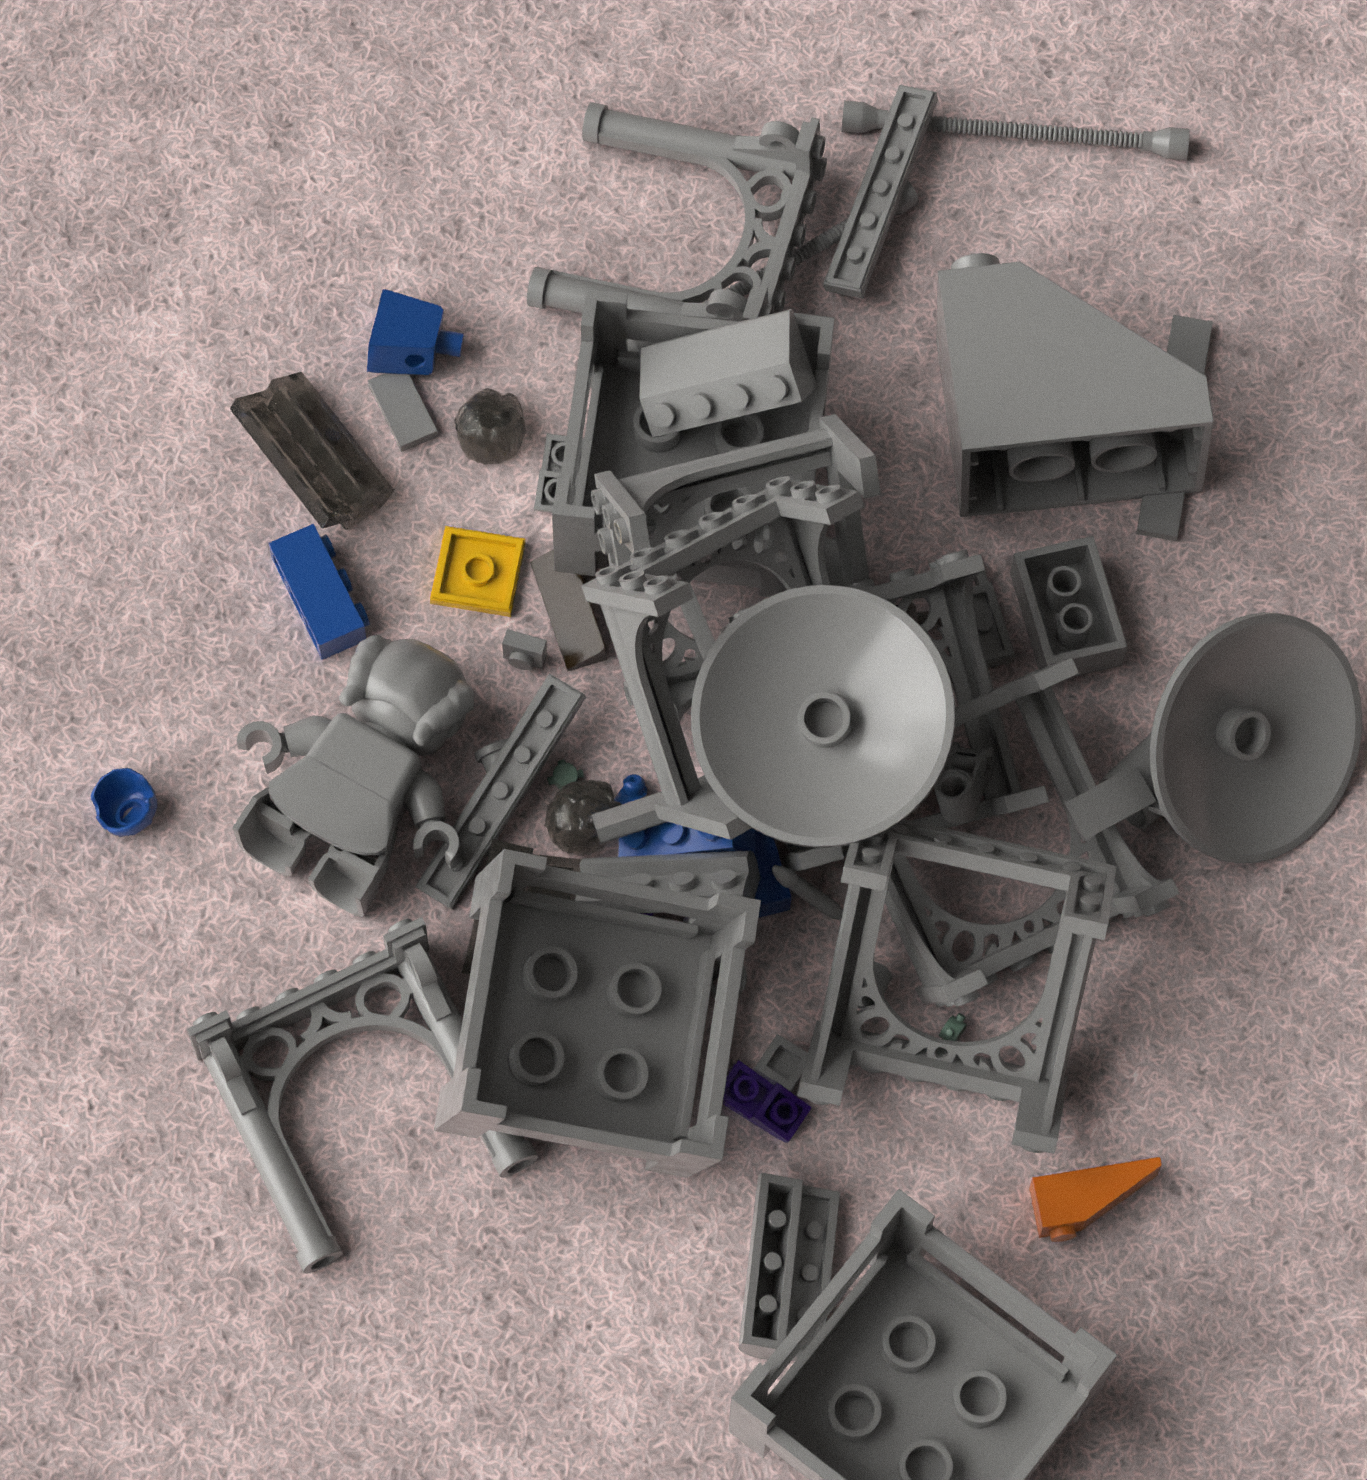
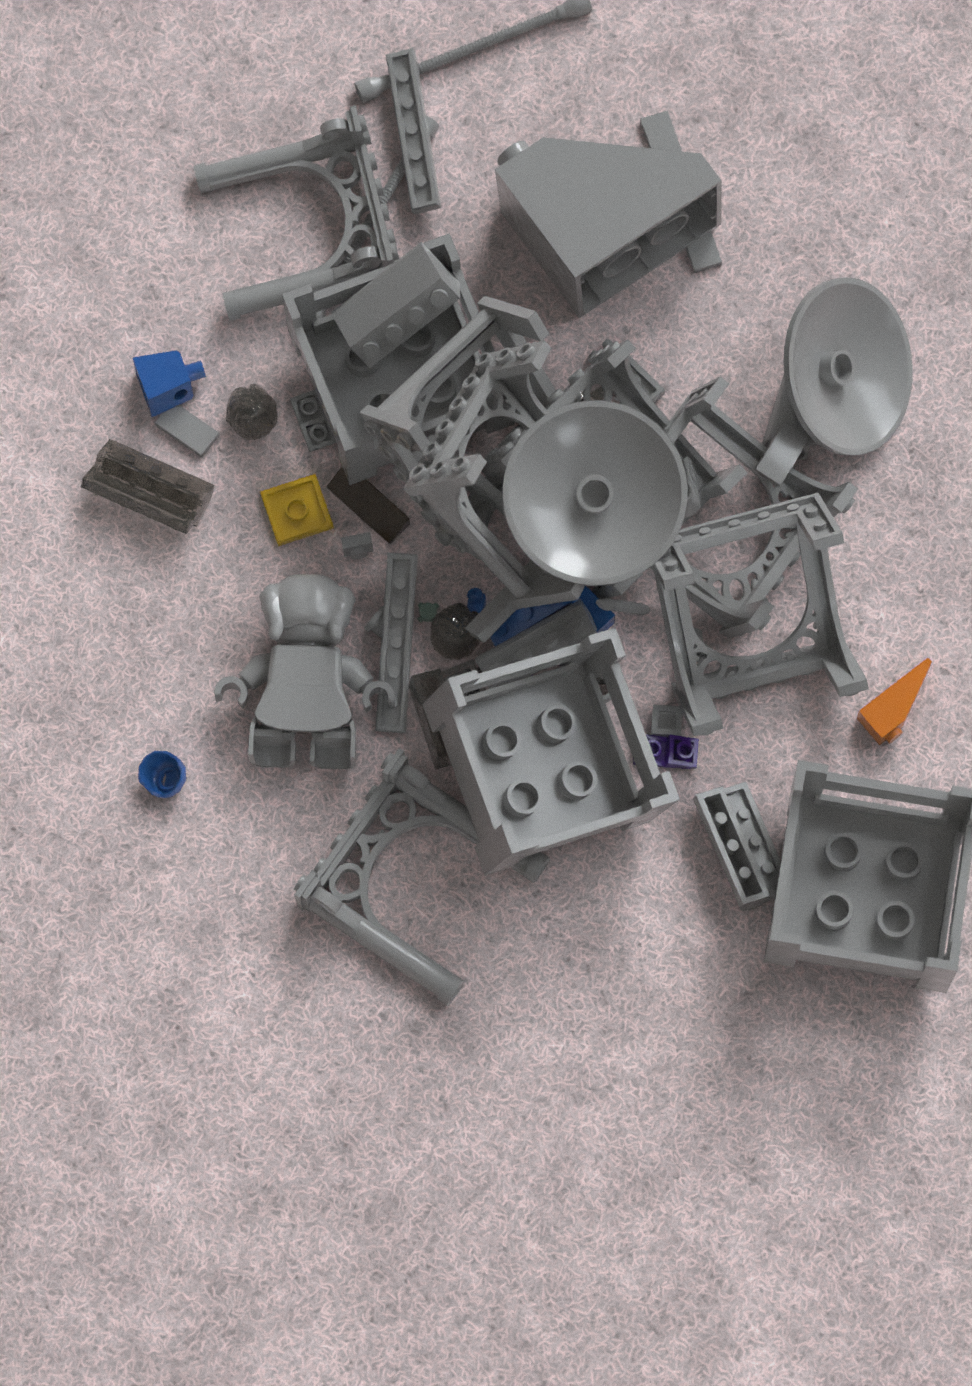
camera: 25 degrees left, 5 degrees up
(319, 590) = (205, 574): blue brick -> none
(953, 1028) = (757, 644): sand green piece -> none
(1068, 606) = (682, 343): light grey brick -> none

